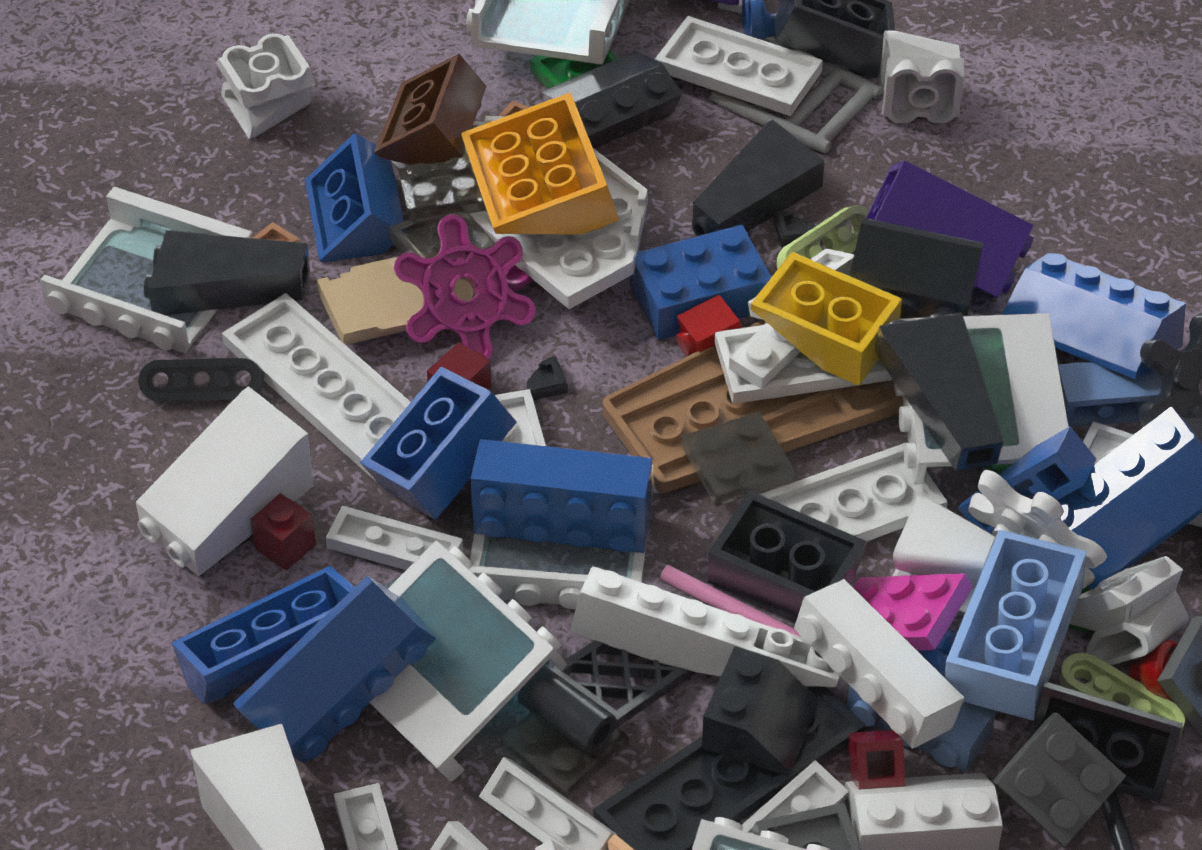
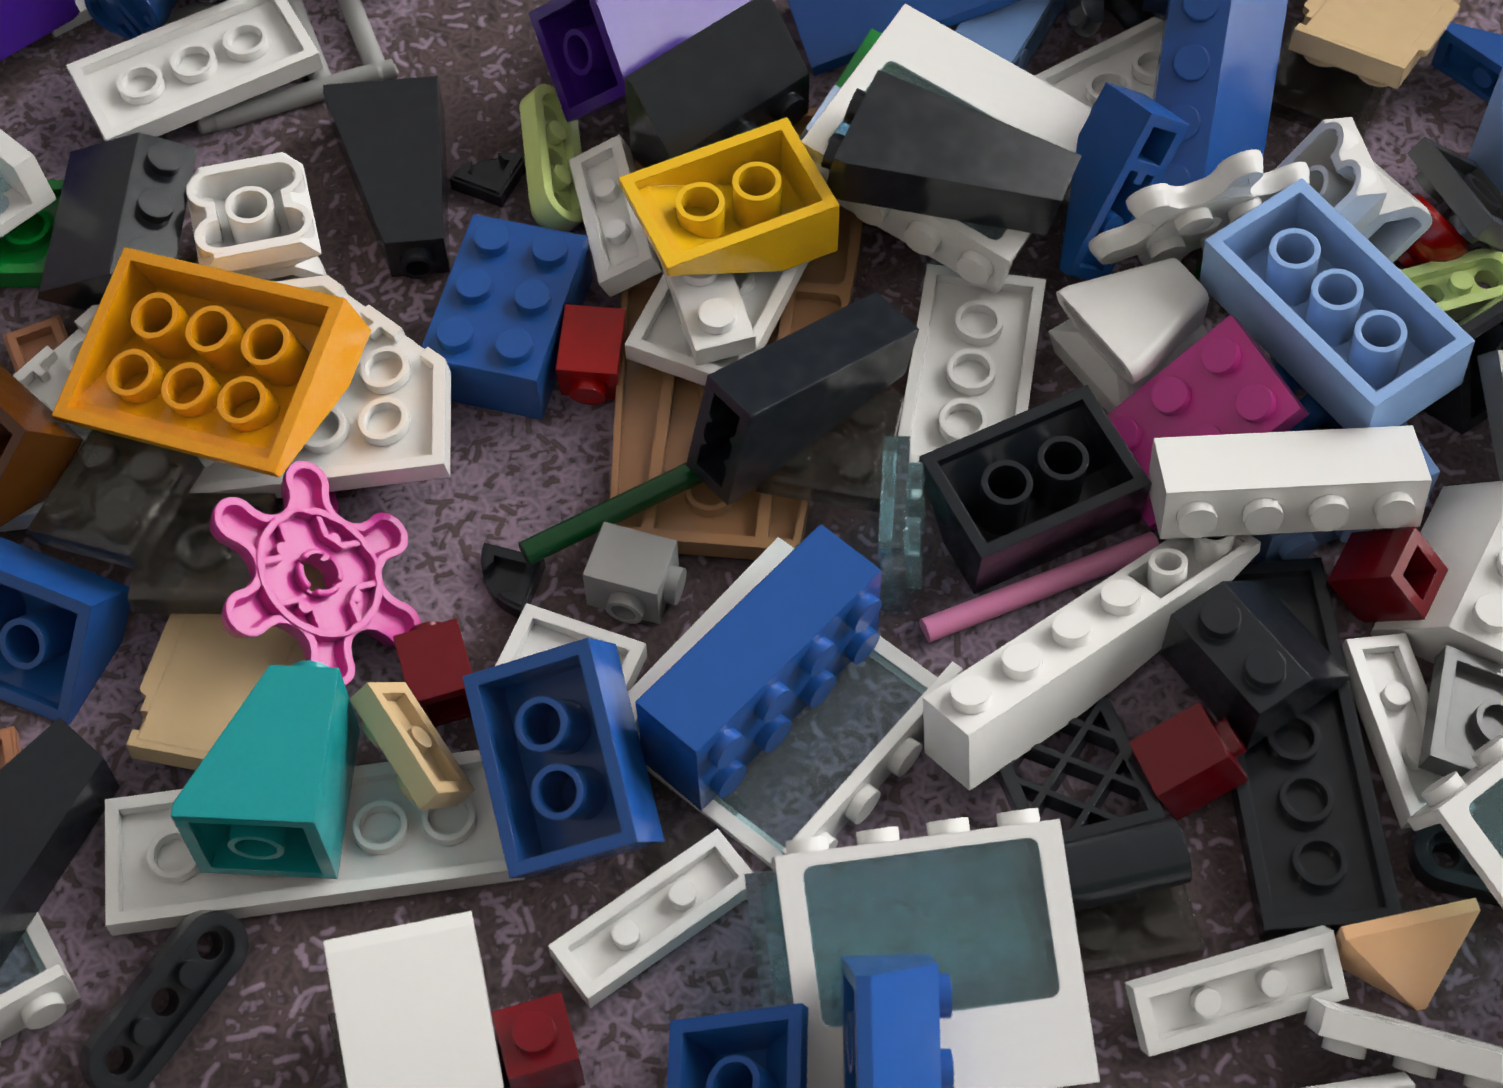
camera: 55 degrees left, 10 degrees up
(336, 336) = (276, 780): none -> teal slope
(399, 379) = (411, 744): none -> tan plate
(585, 421) = (633, 574): none -> light grey brick
(629, 396) = (611, 511): none -> dark green bar
(655, 147) = (255, 218): none -> white piece
(667, 719) = (1190, 759): none -> dark red brick
(701, 509) = (901, 524): none -> clear light blue plate
(737, 409) = (795, 392): none -> black slope

